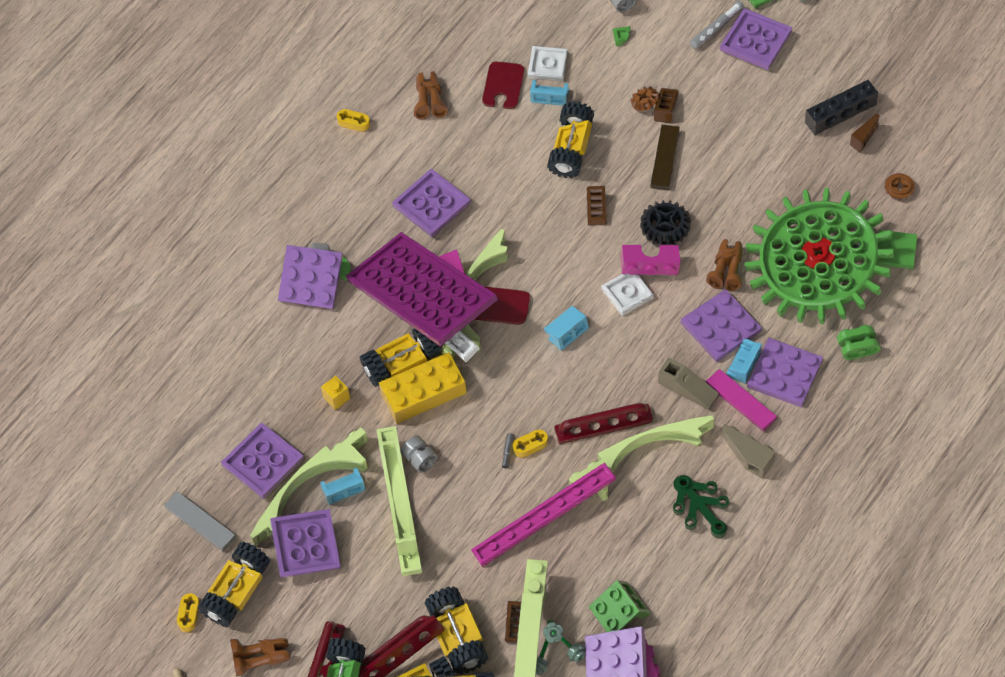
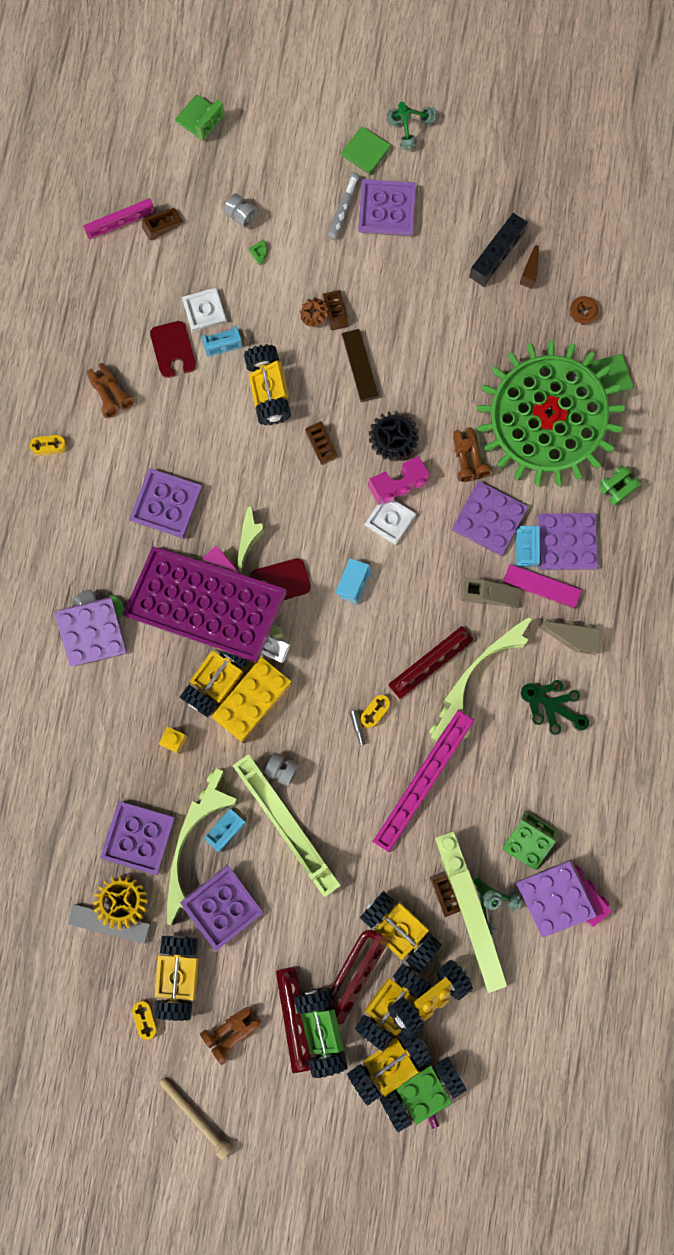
camera: 30 degrees left, 20 degrees up
(216, 509) = (115, 909): none -> yellow gear

